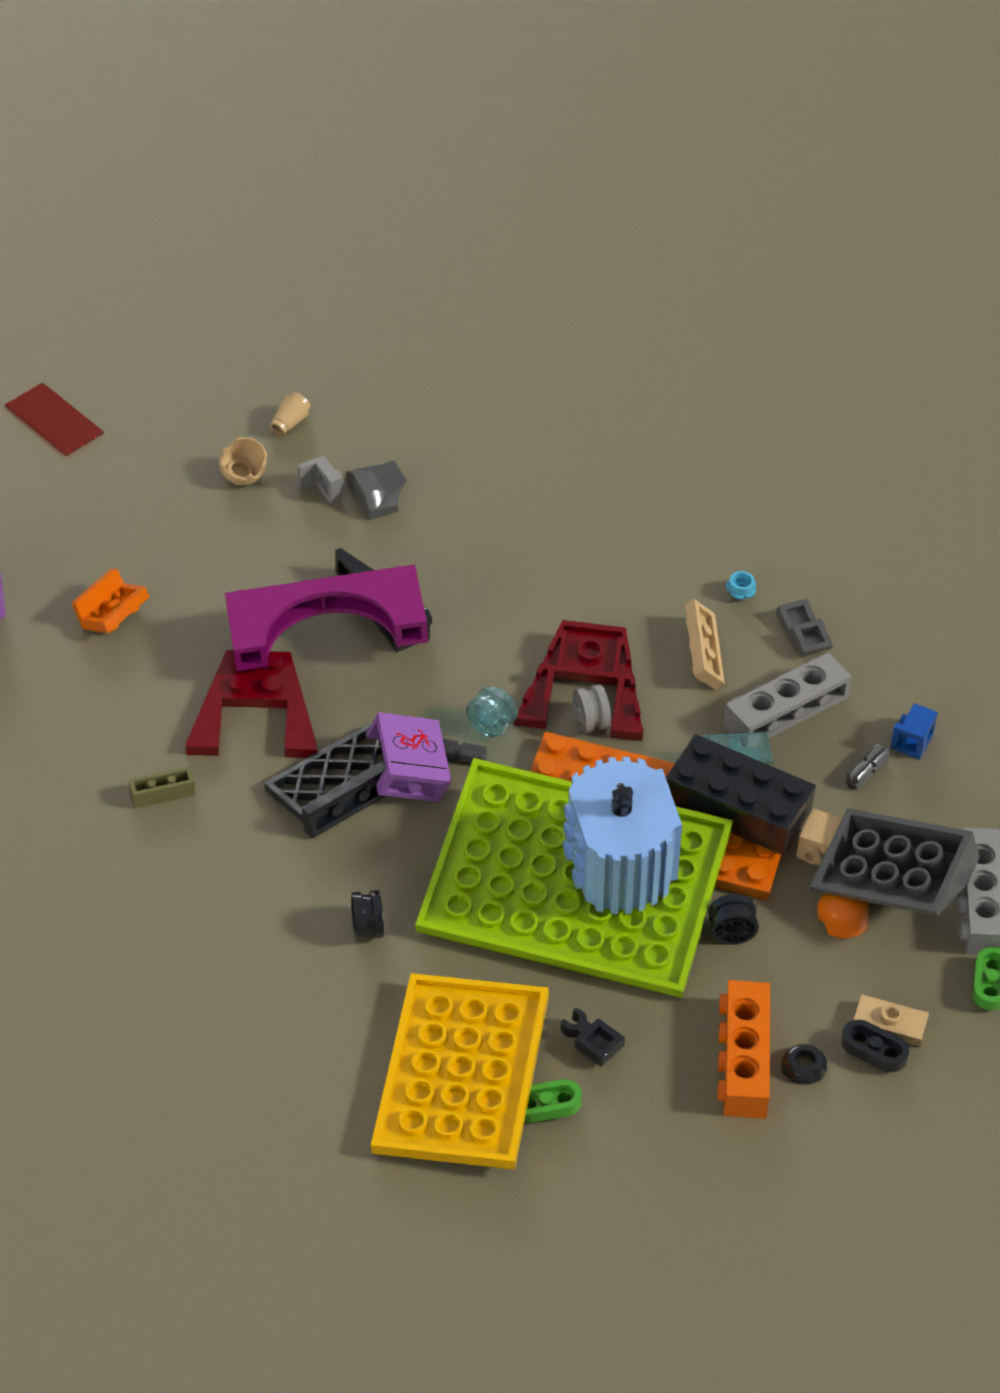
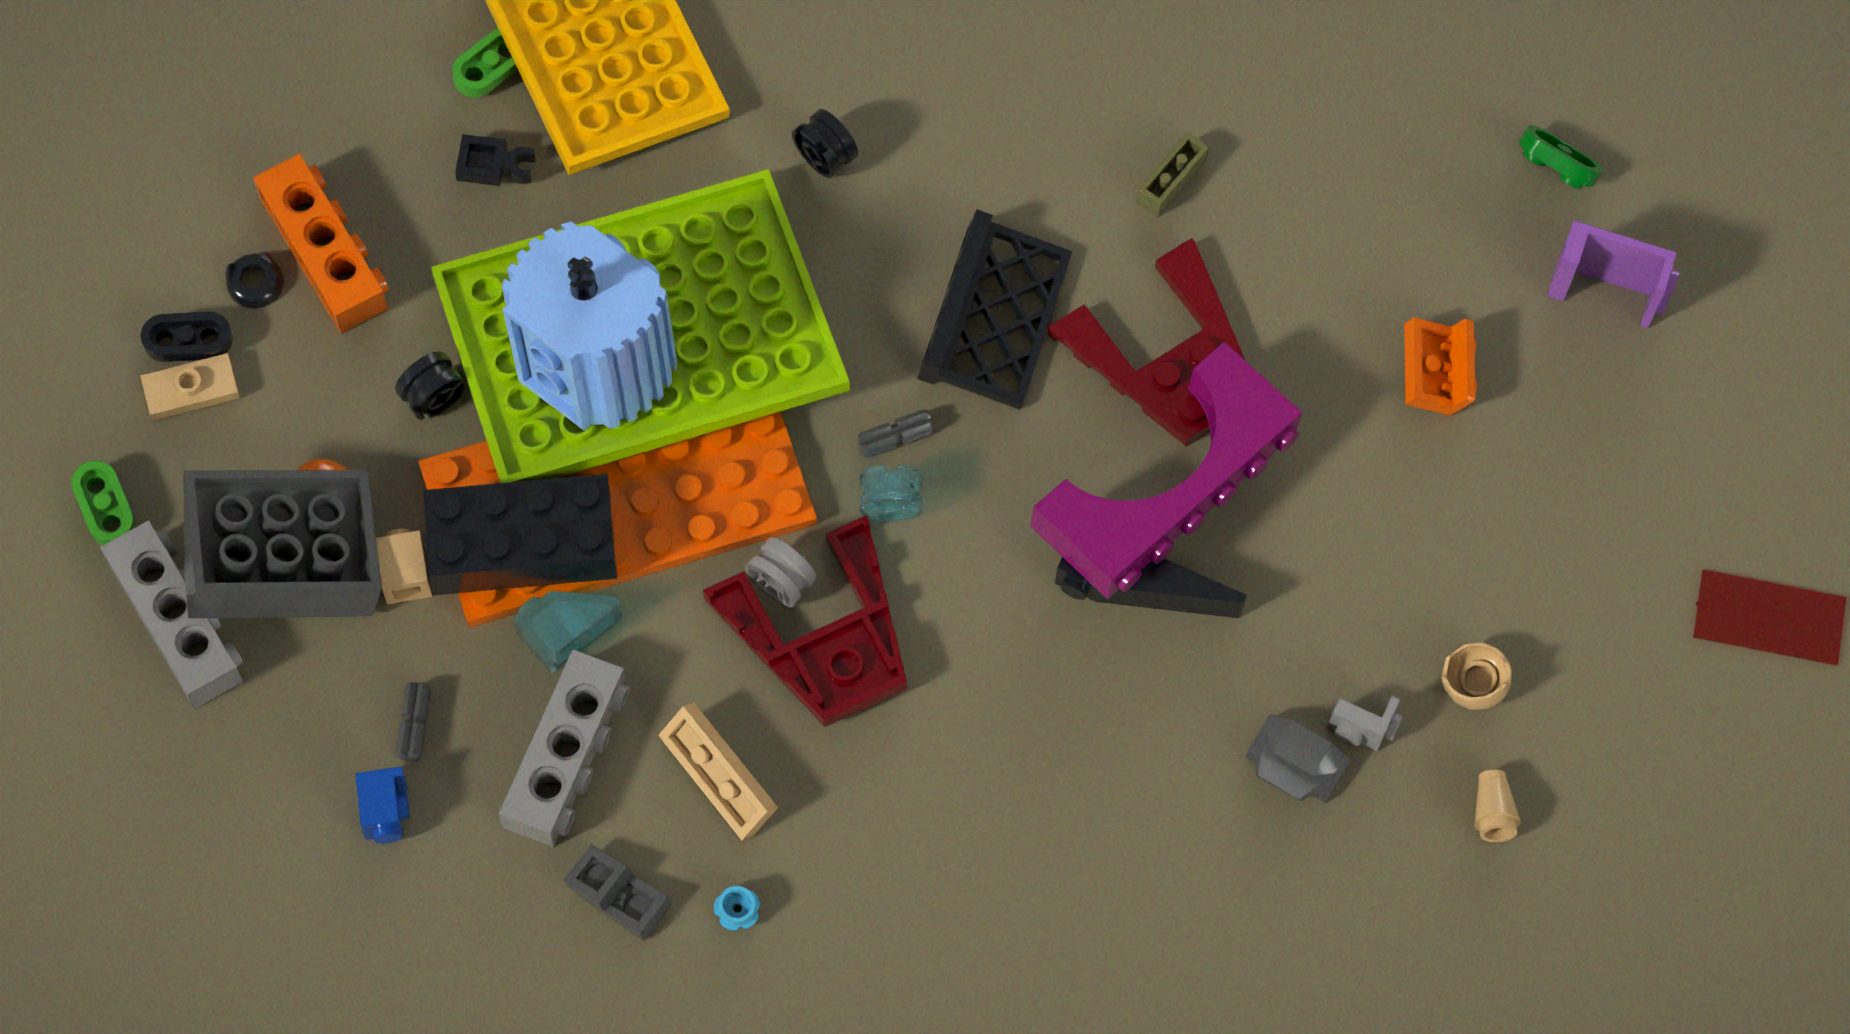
camera: 145 degrees right, 20 degrees up
(412, 757) = (932, 361): medium lavender panel -> none

